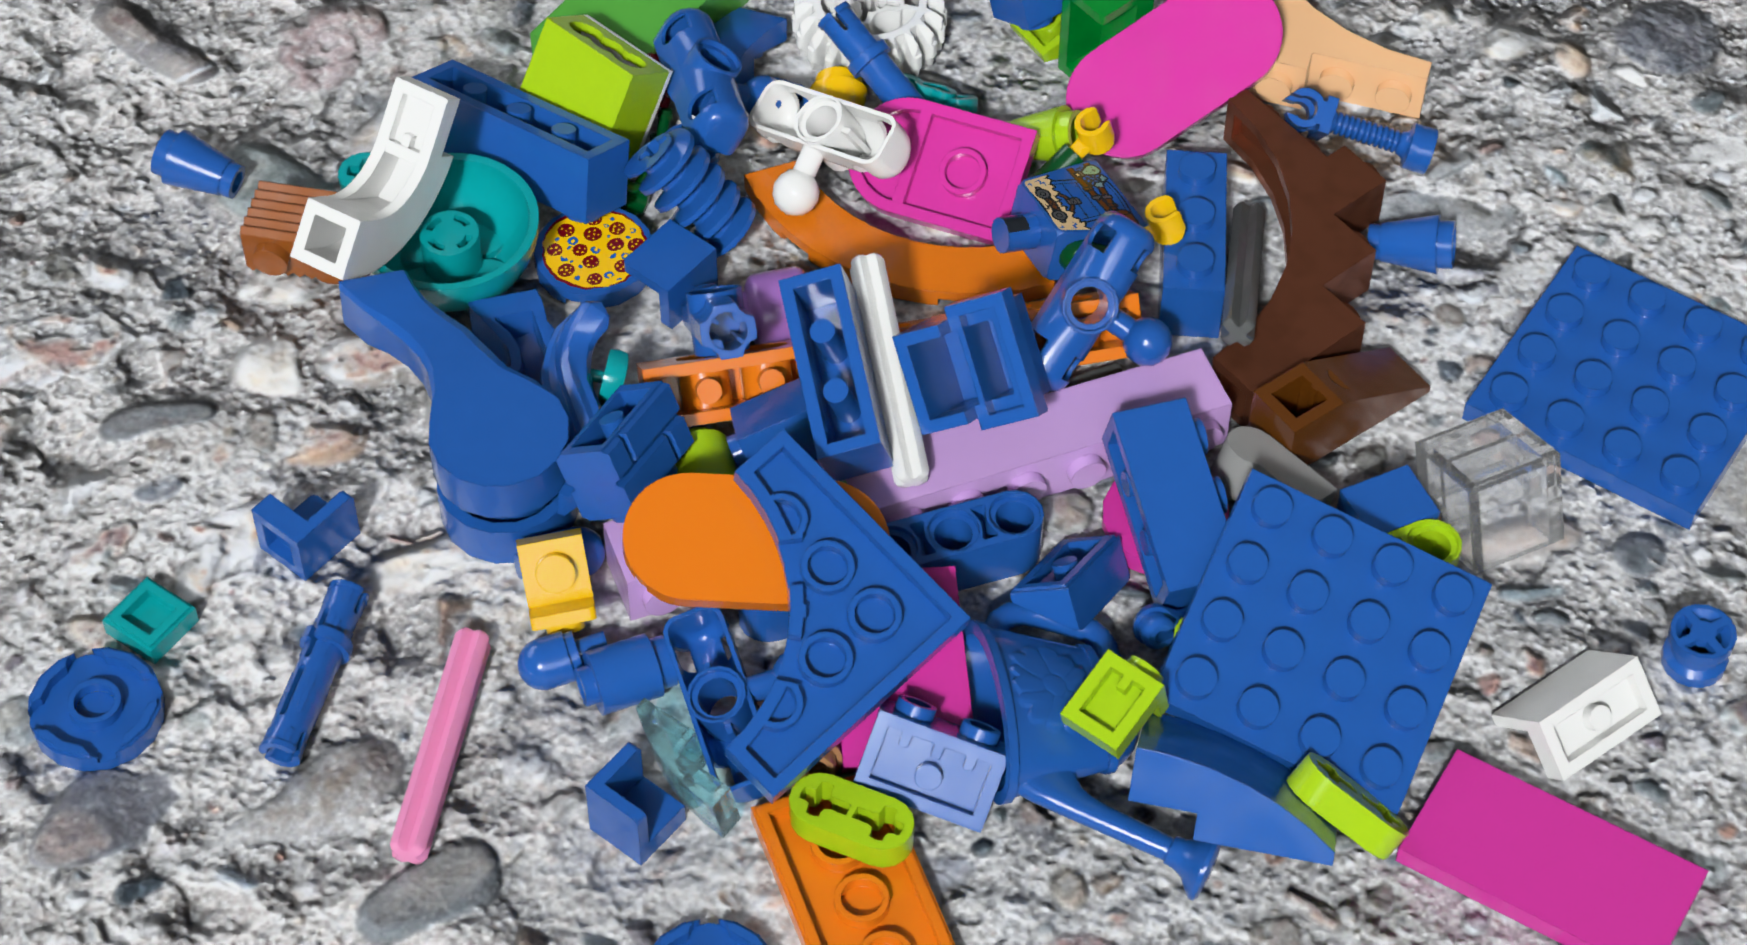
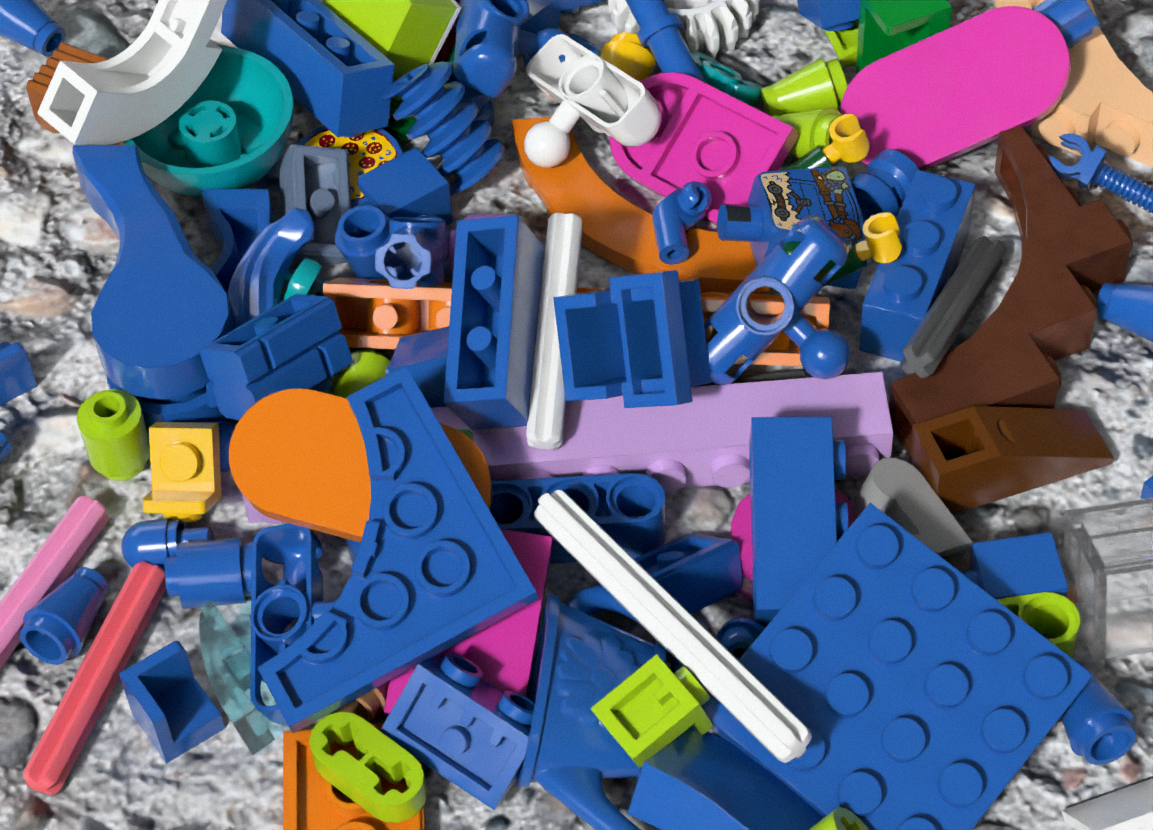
camera: 20 degrees right, 0 degrees up
(474, 561) = (114, 434): none -> lime brick
(491, 749) = (64, 618): none -> blue cone
(544, 800) = (95, 679): none -> coral axle
(580, 271) = (320, 184): none -> sand blue slope
(658, 322) = (358, 237): none -> blue cone
(946, 240) = (677, 216): none -> blue arm
(1026, 91) = (807, 89): none -> lime cone
(1104, 620) = (674, 627): none -> white axle
(1137, 169) = (884, 183): none -> blue wheel
(1504, 631) = (1099, 720): none -> blue cone

